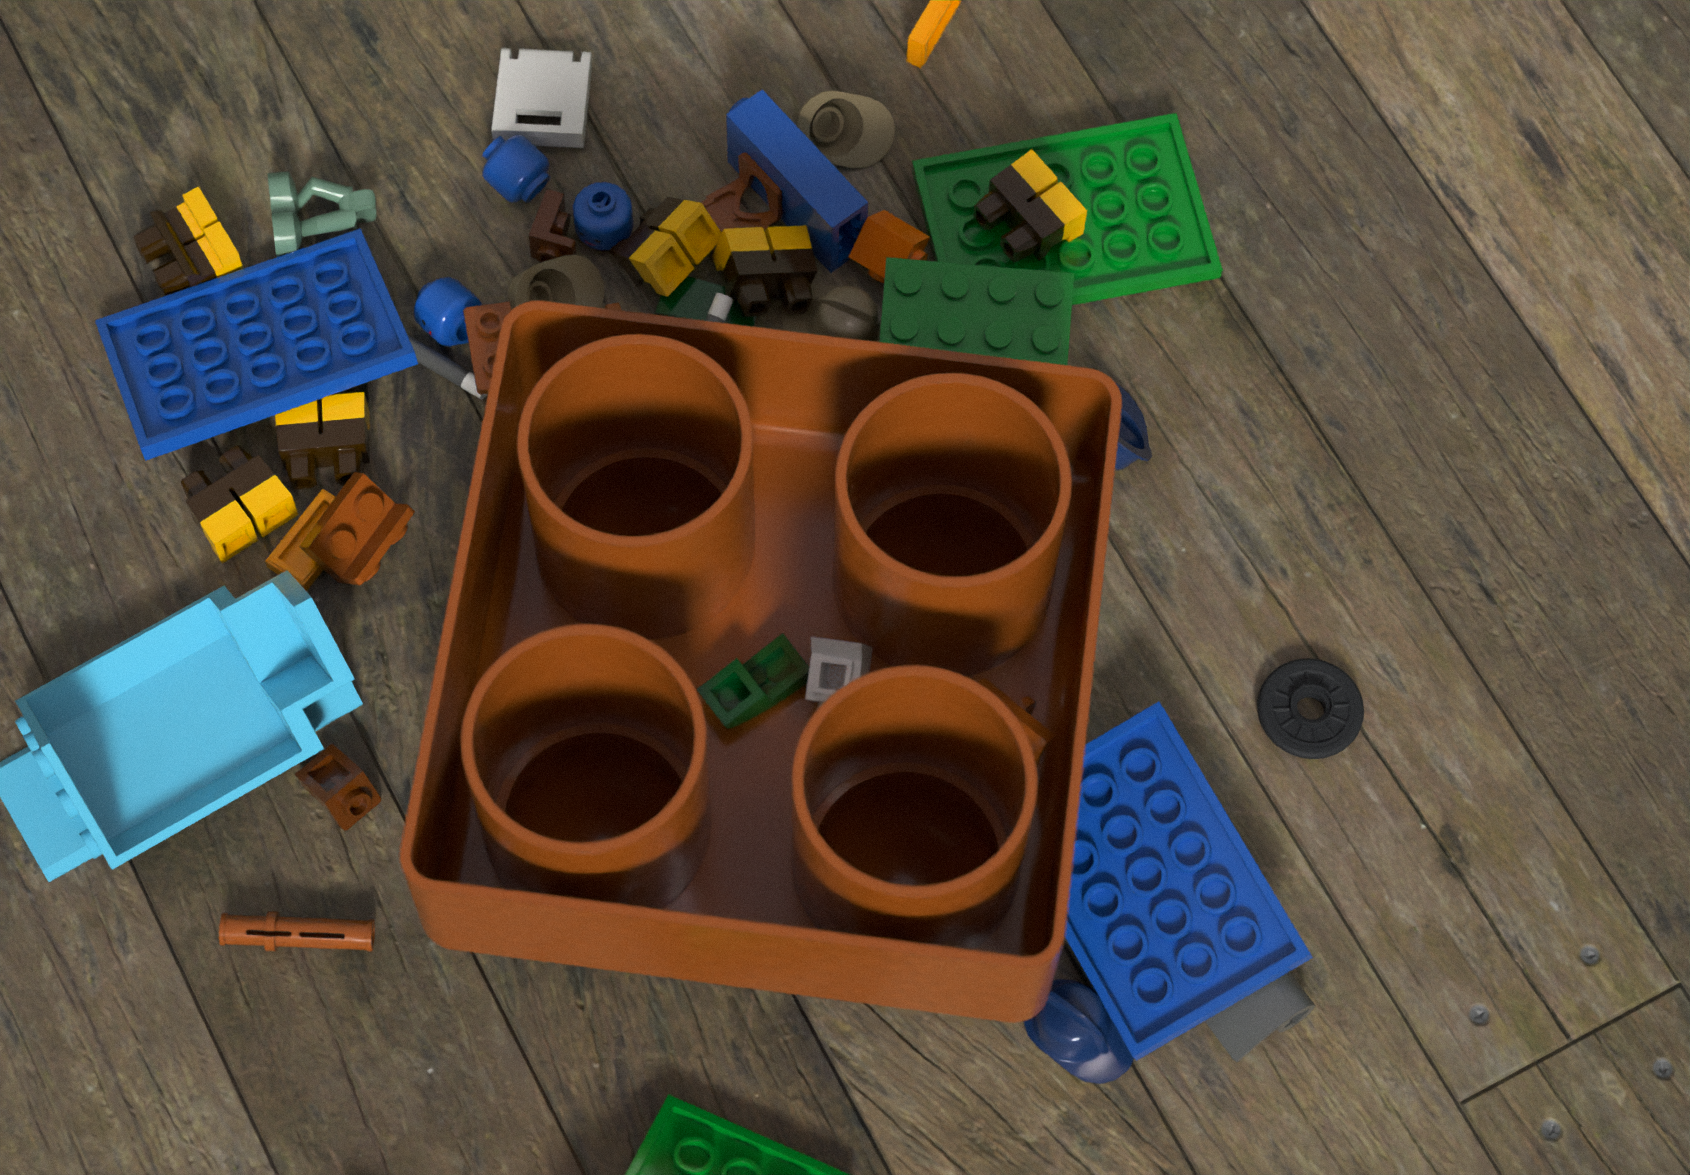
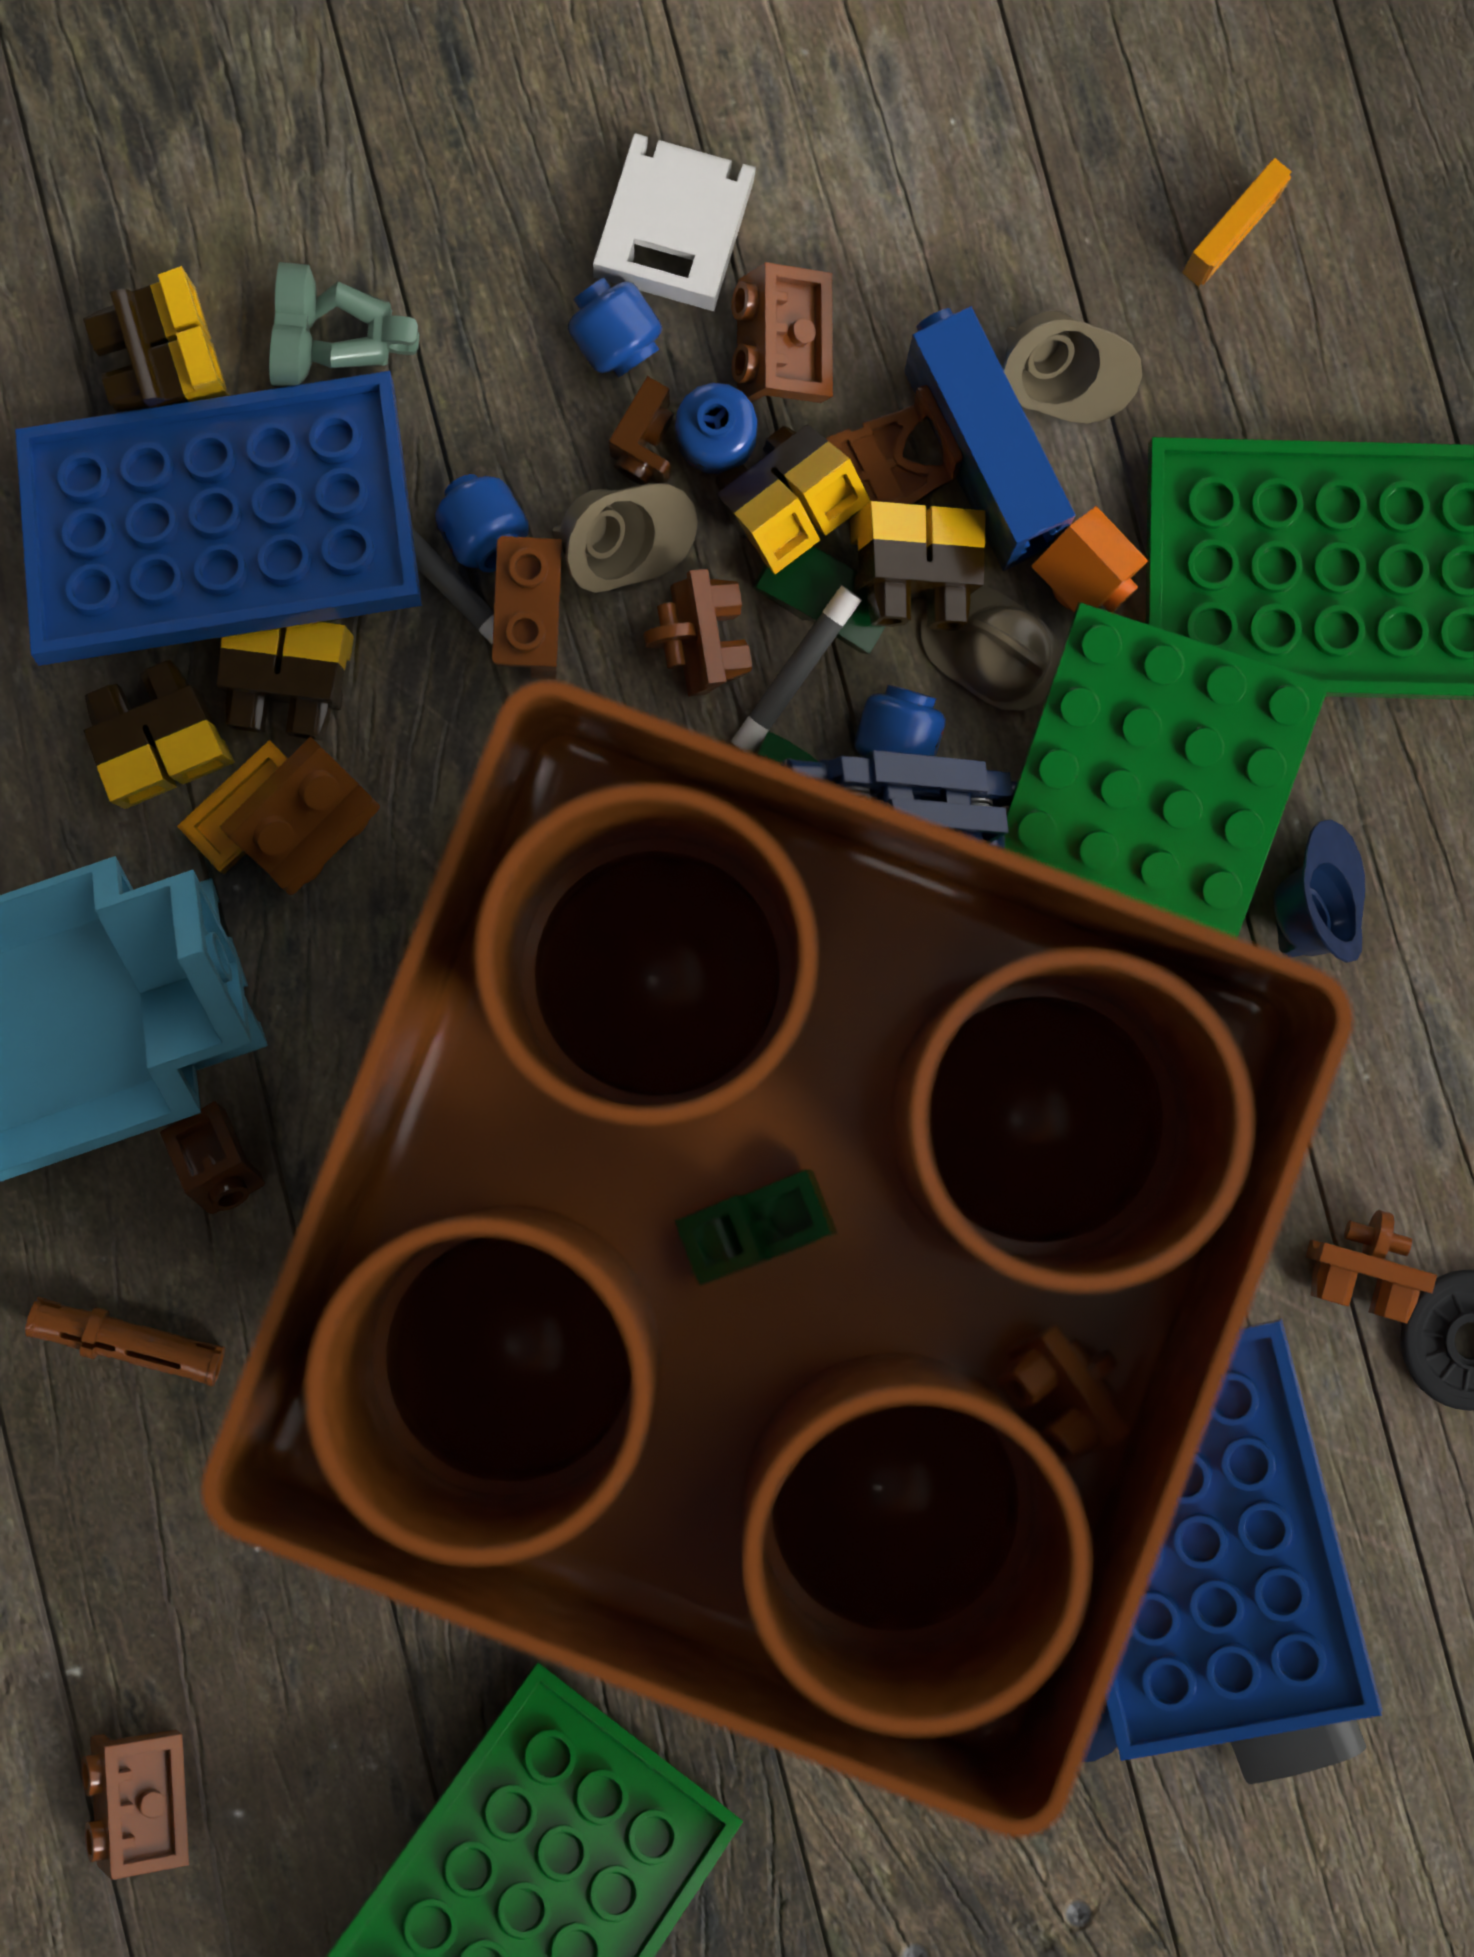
camera: 15 degrees right, 20 degrees up
(637, 148) = (784, 333): none -> dark orange bracket
(834, 666) = (862, 1256): white window -> none
(1032, 207) = (1300, 585): dark brown hips -> none
(1220, 664) = (1396, 1284): none -> dark orange hips

